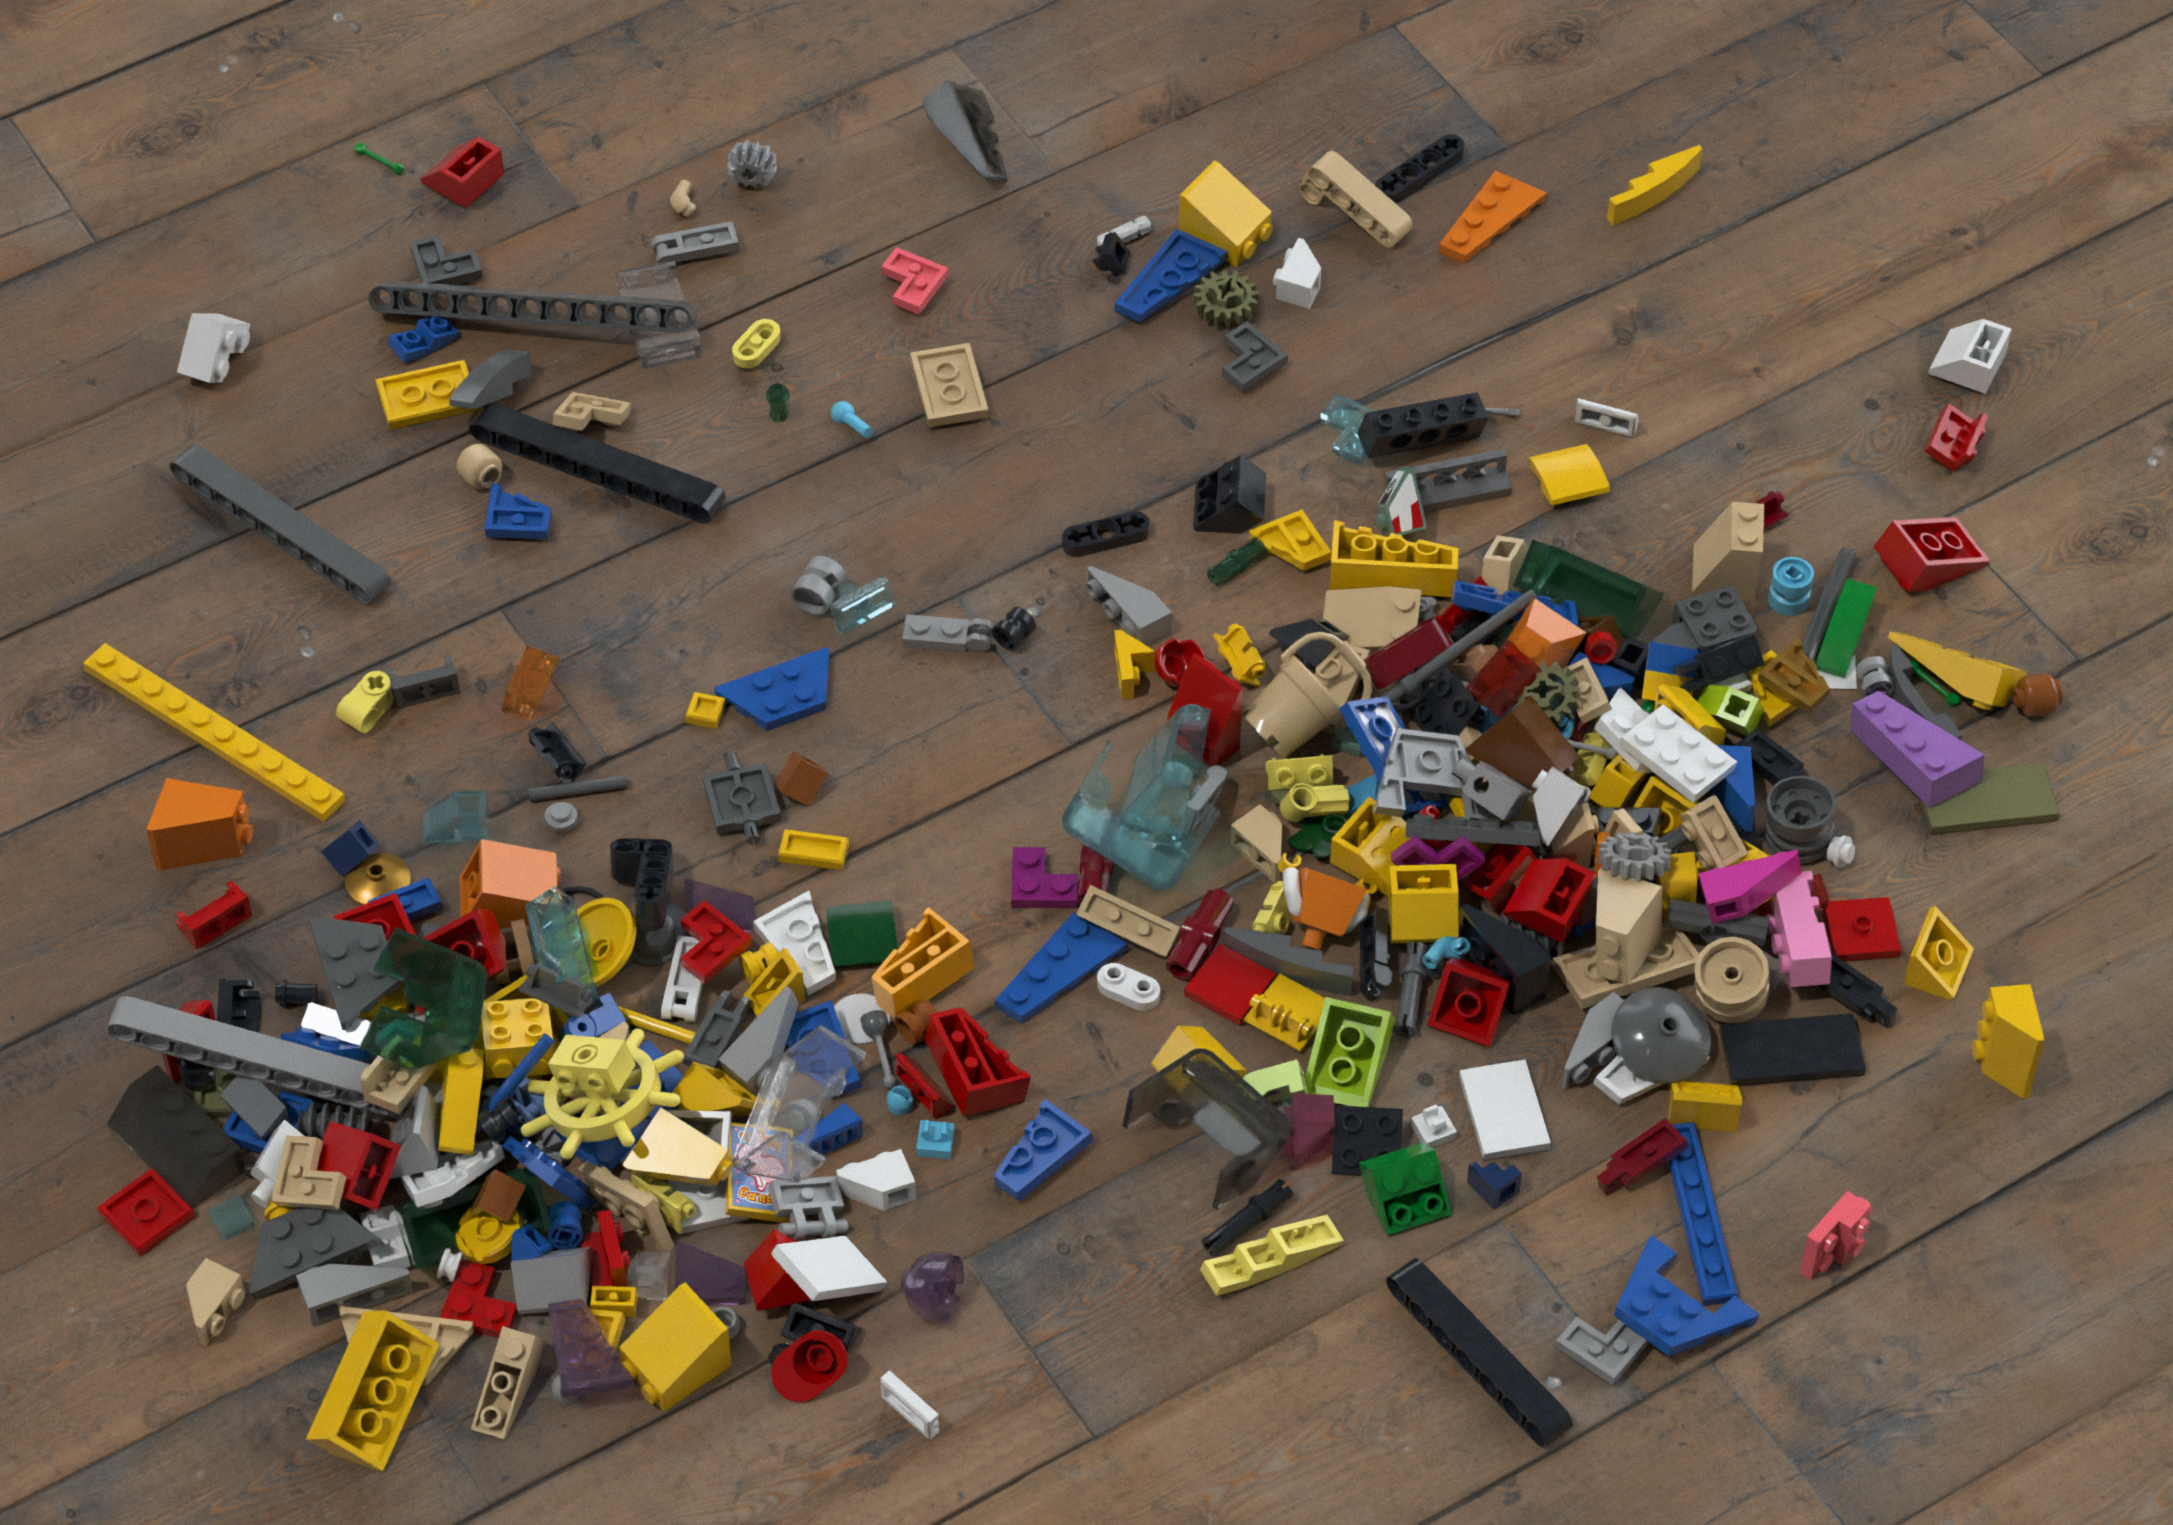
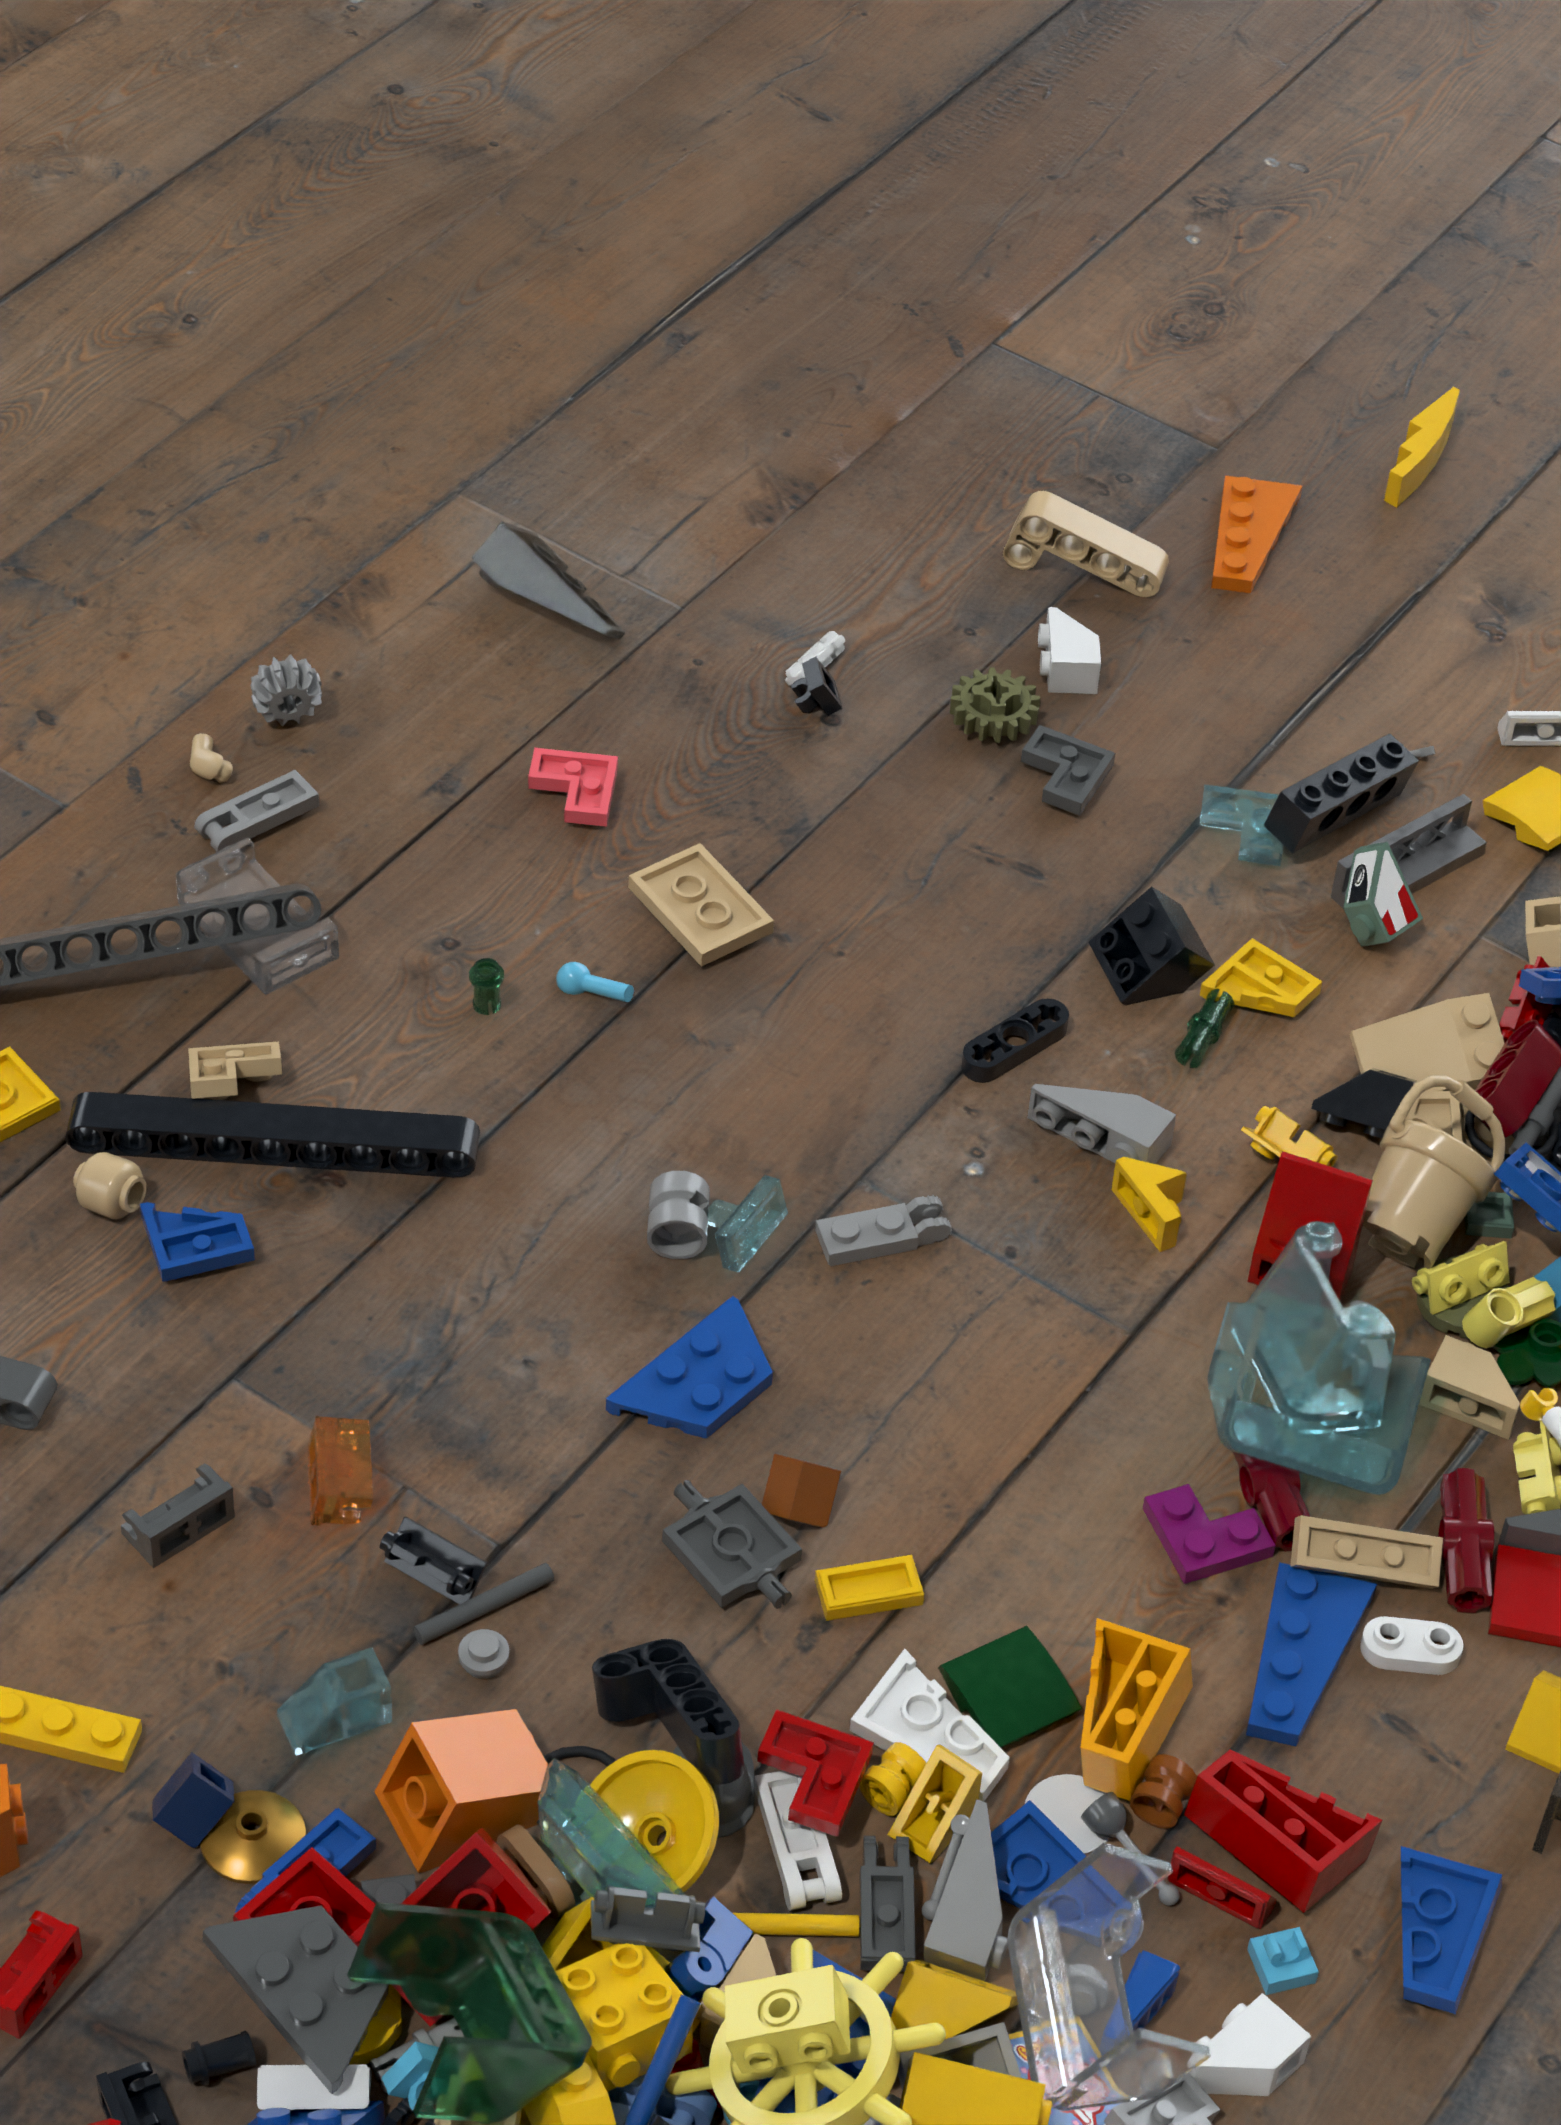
camera: 25 degrees left, 5 degrees down
(366, 702) = (109, 1571): light yellow piece -> none
(492, 379) = (71, 1060): dark grey slope -> none
(705, 710) = (607, 1435): yellow tile -> none
(733, 905) = (757, 1704): clear purple wing -> none
(752, 348) = (411, 918): light yellow plate -> none
(898, 1103) = (1199, 1918): medium azure hinge -> none
(1012, 629) = (972, 1197): black wheel -> none
(1169, 273) = (903, 693): blue wing -> none
(1173, 658) = (1220, 1178): red hair -> none
(1224, 213) = (937, 606): yellow slope -> none
(1381, 561) = (1389, 978): yellow wedge -> none
(1423, 173) = (1138, 498): black beam -> none

